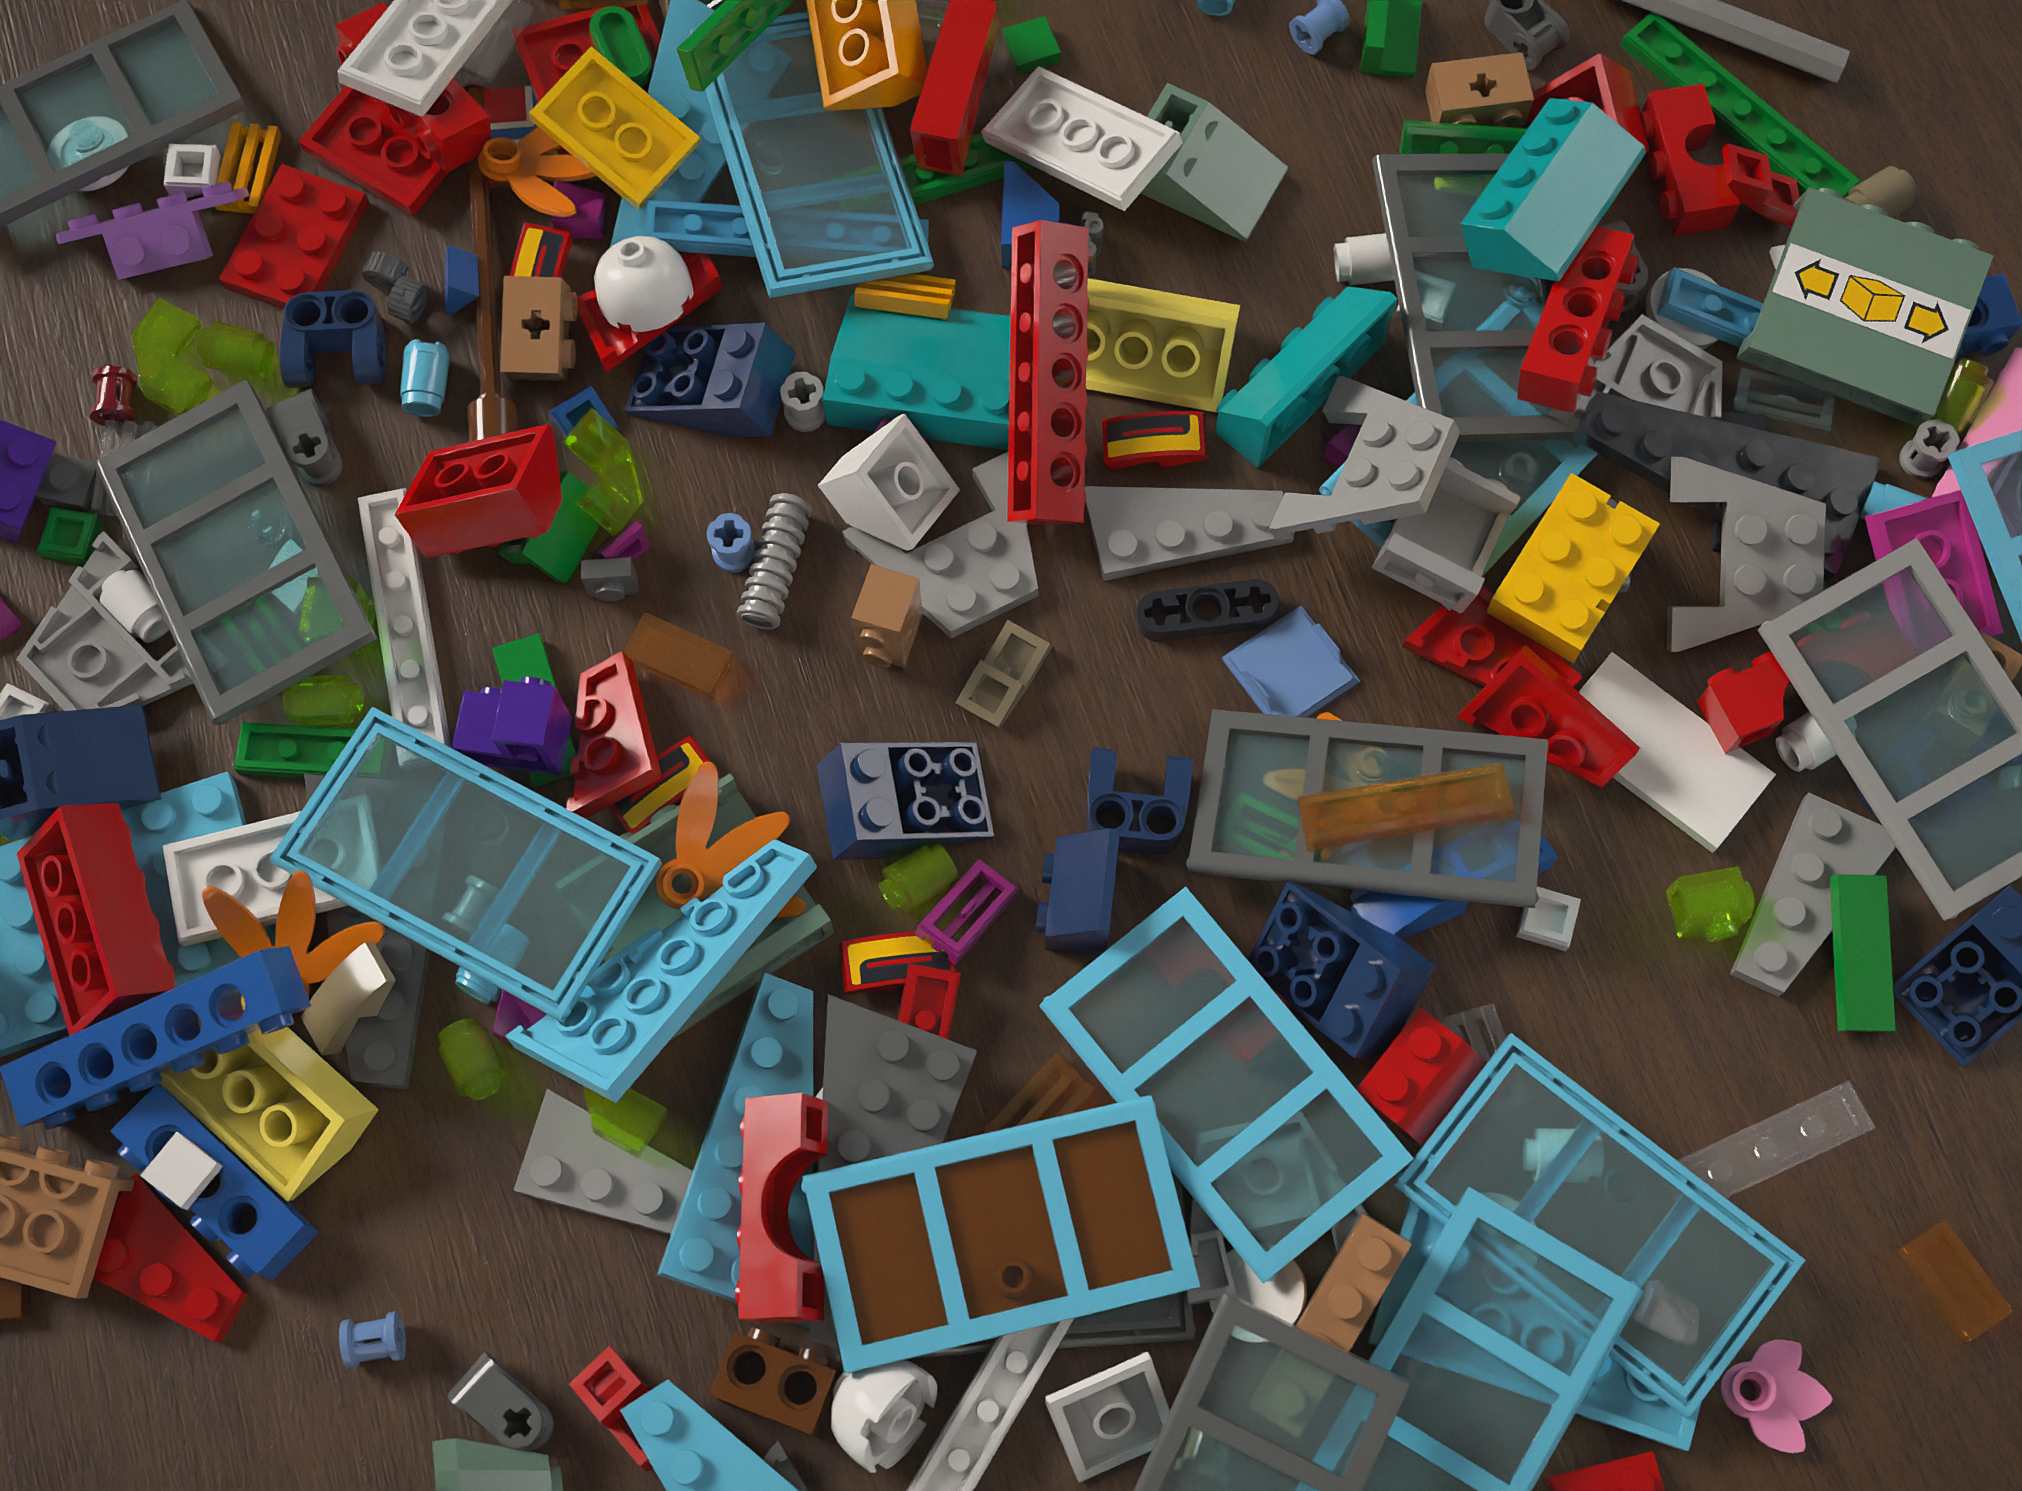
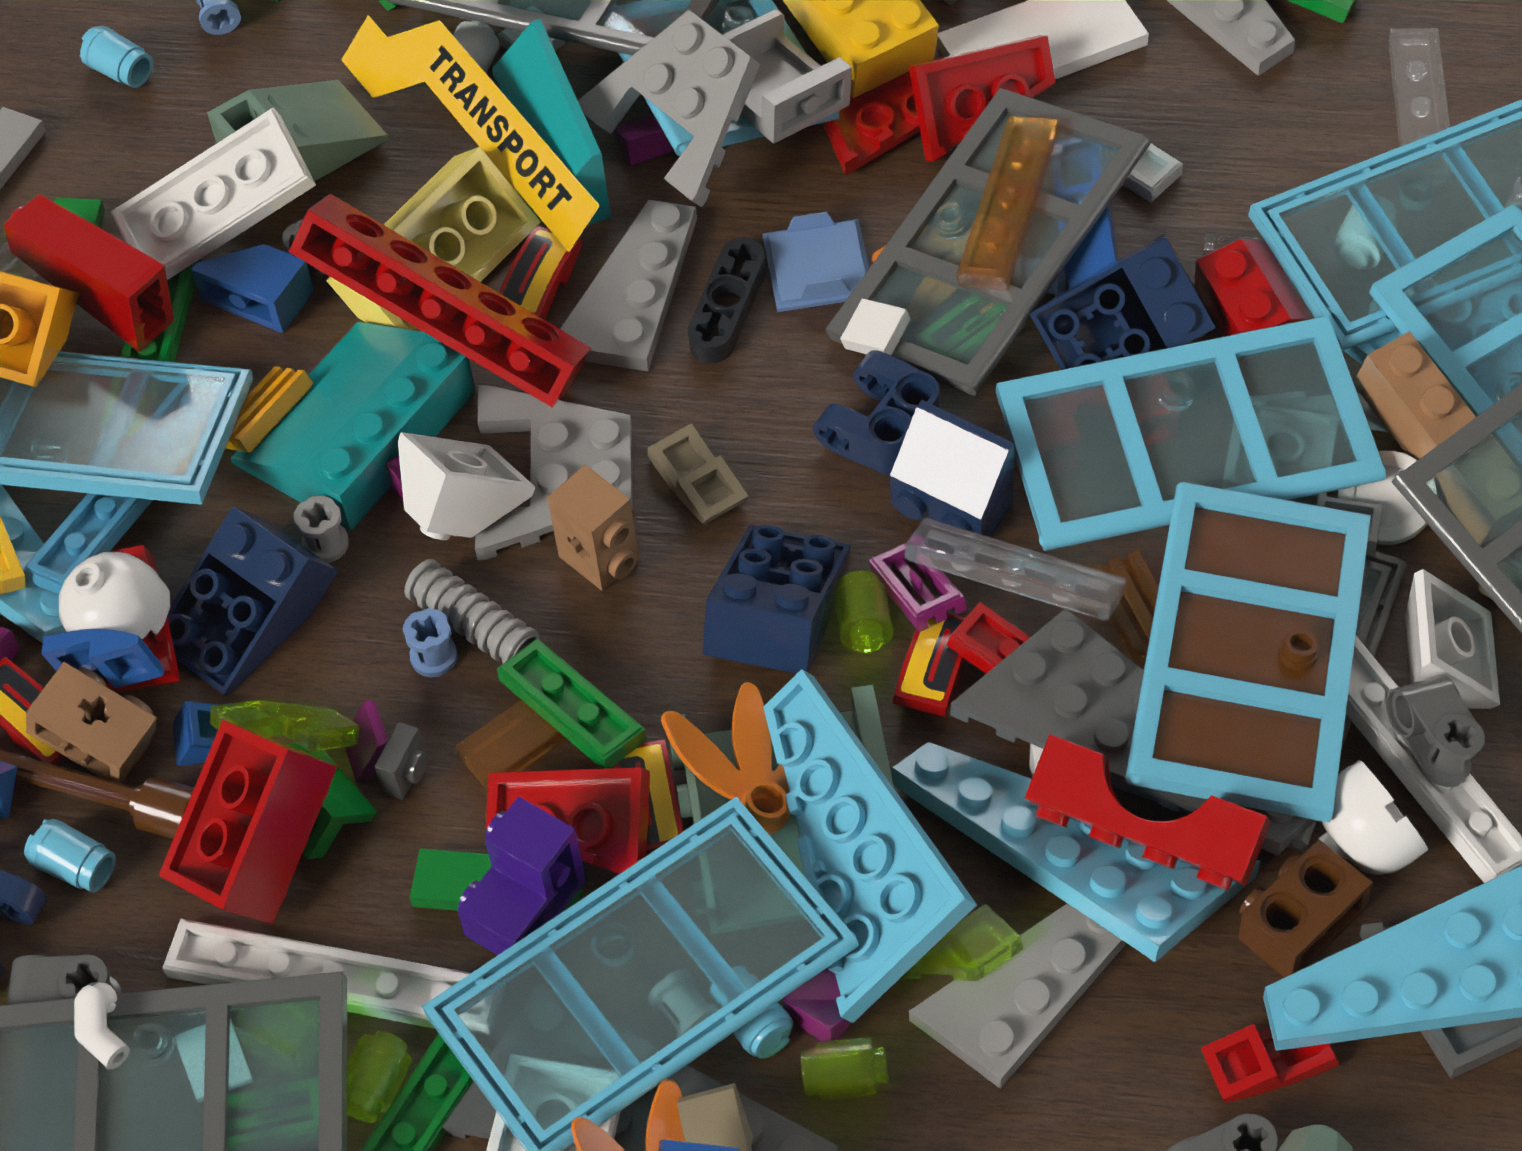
camera: 60 degrees left, 15 degrees down
(252, 475) = (91, 1027): none -> white arm
(585, 303) = (109, 653): none -> blue slope
(715, 683) = (571, 704): none -> green tile
(1000, 1423) = (1436, 728): none -> dark grey piece
(1012, 990) = (1015, 569): none -> clear tile
(1218, 753) = (875, 327): none -> white tile
(1327, 220) = (505, 136): none -> yellow sticker
(1711, 904) = (1195, 55): clear neon green brick -> none

